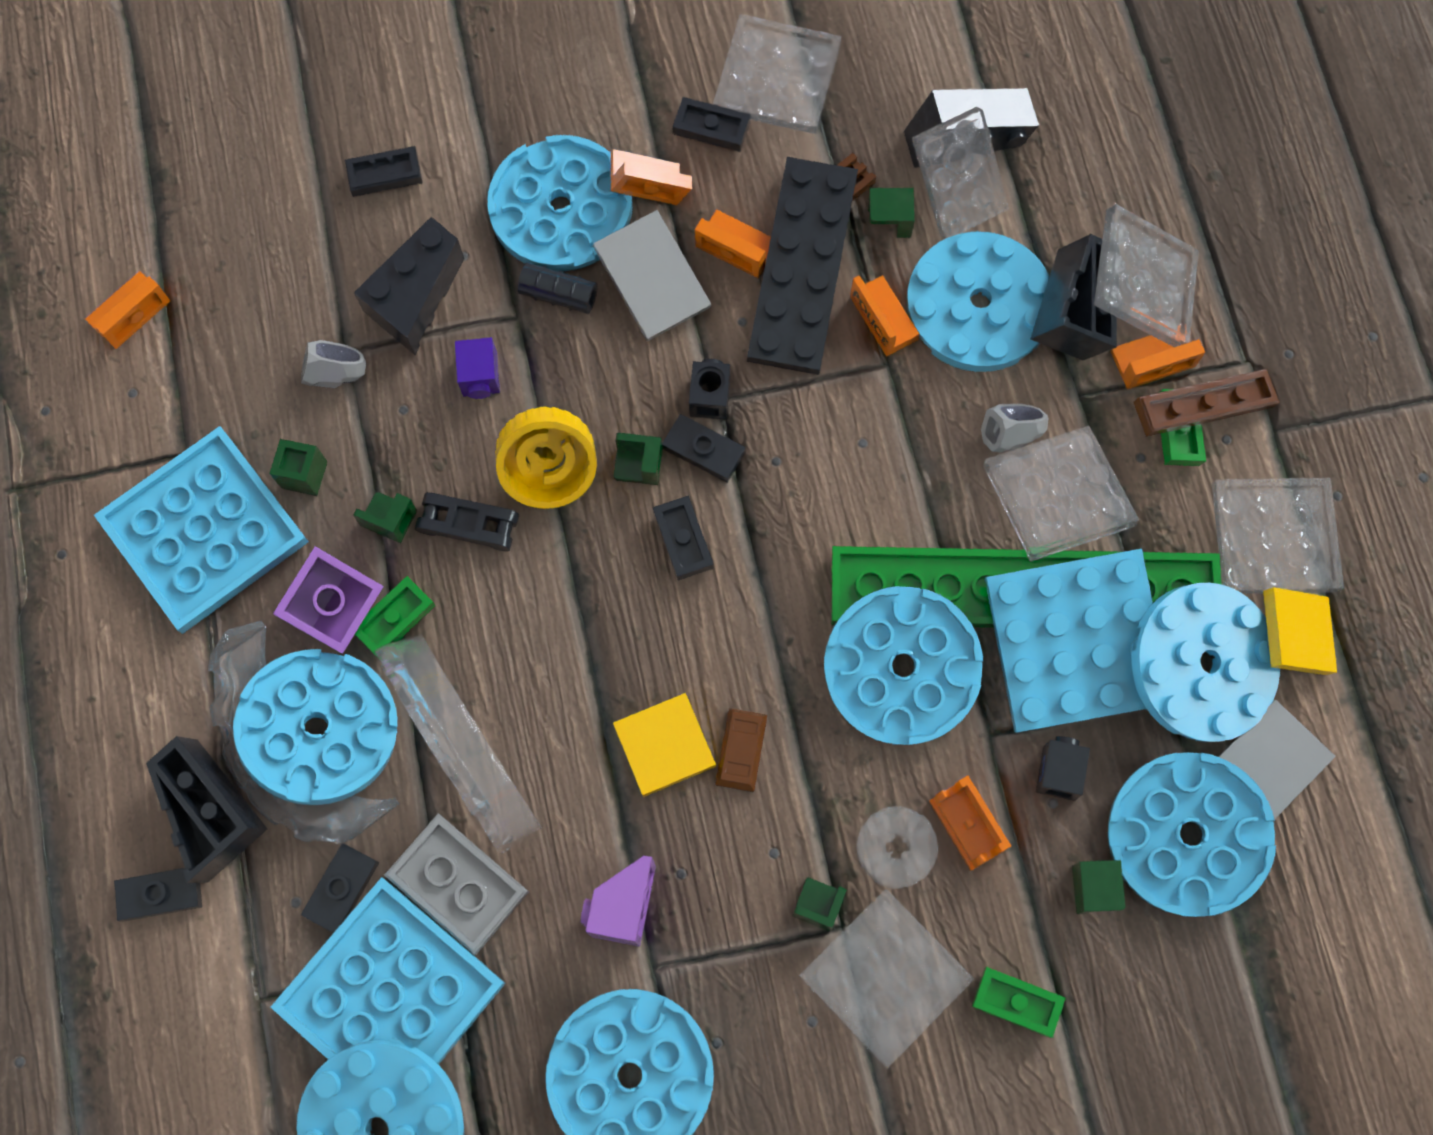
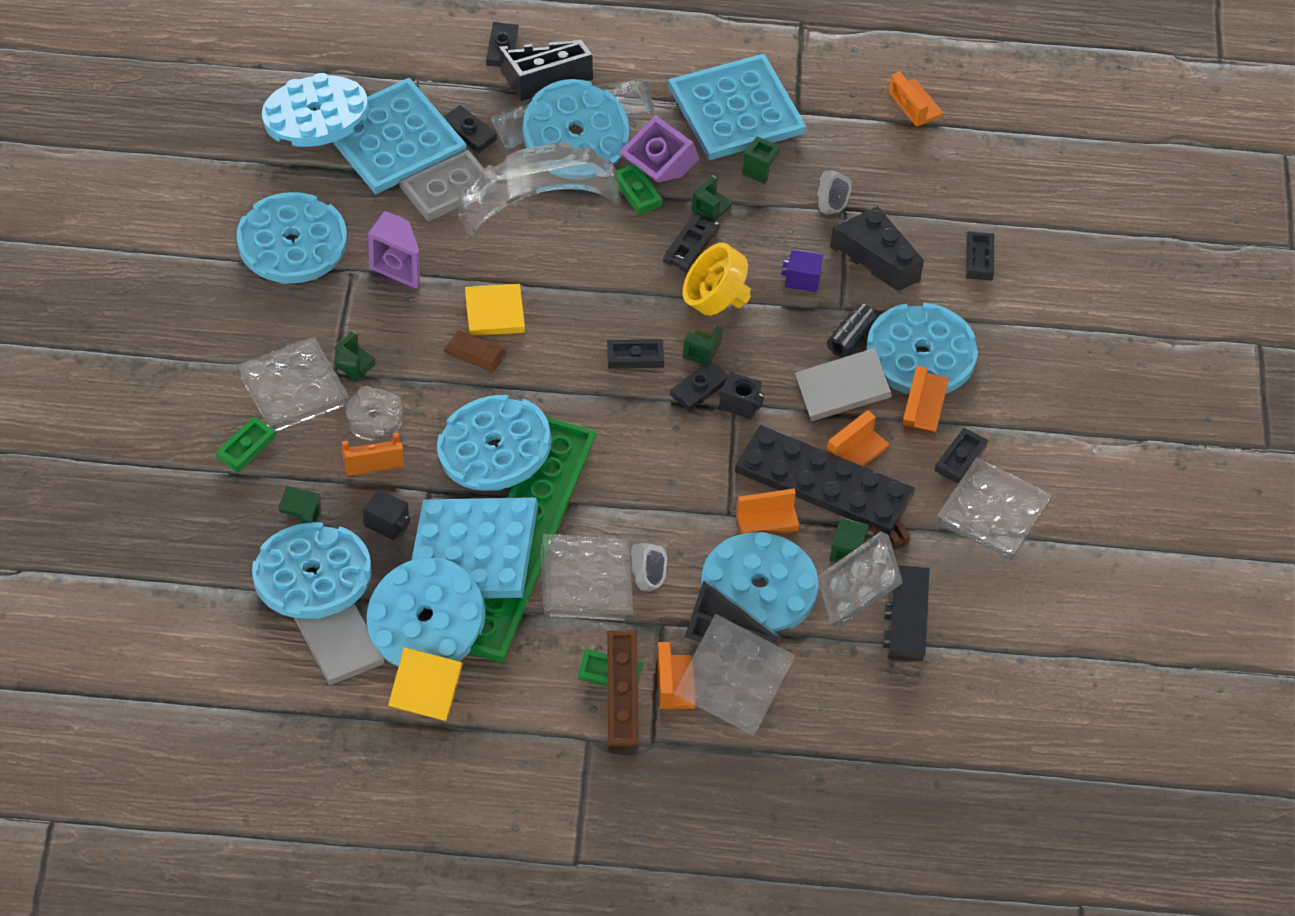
camera: 100 degrees right, 20 degrees down
(1277, 535) = (504, 703): clear plate -> none

